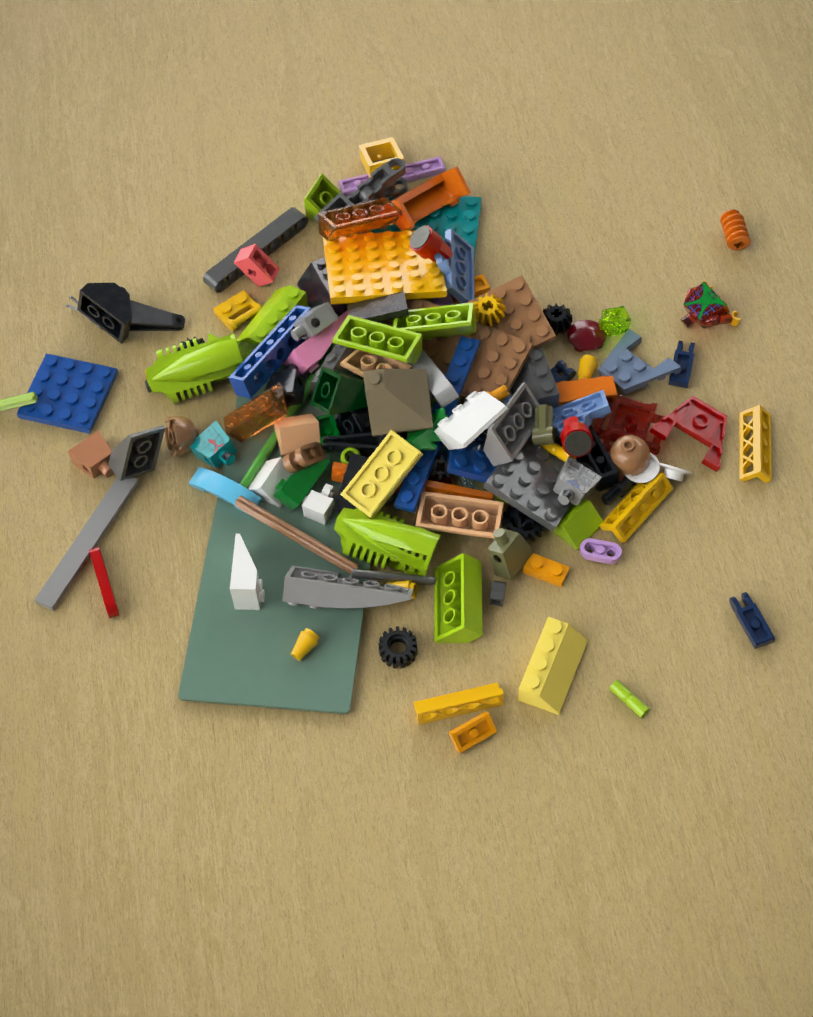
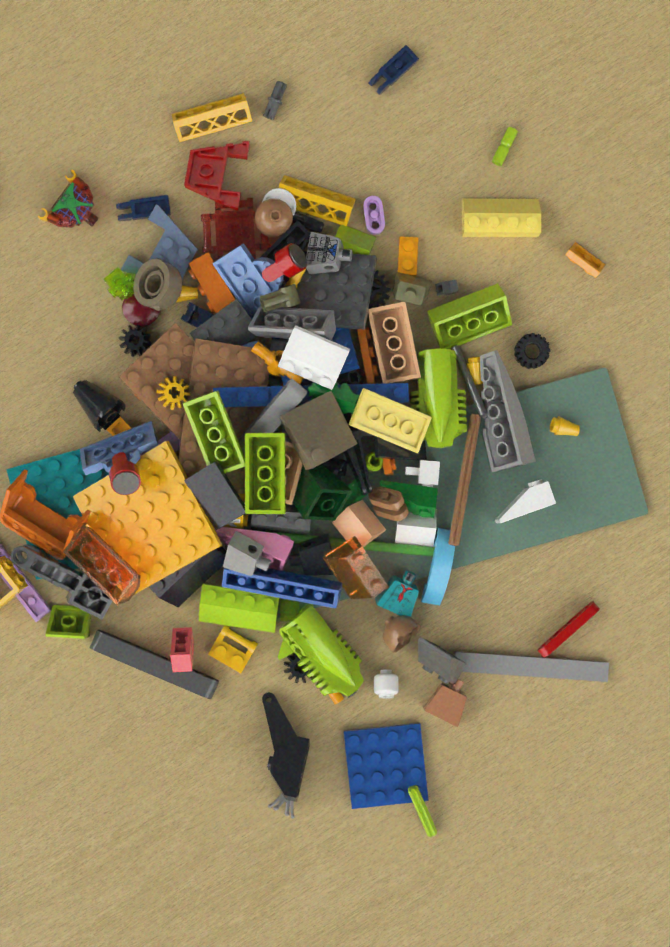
camera: 115 degrees left, 30 degrees up
(139, 412) = (386, 684): none -> white head
(458, 703) = (562, 281): yellow fence -> none
(504, 269) = (98, 404): none -> black cone
(599, 341) = (157, 284): none -> dark tan piece
(674, 472) = (268, 177): white piece -> none
(753, 502) = (275, 100): none -> dark grey axle

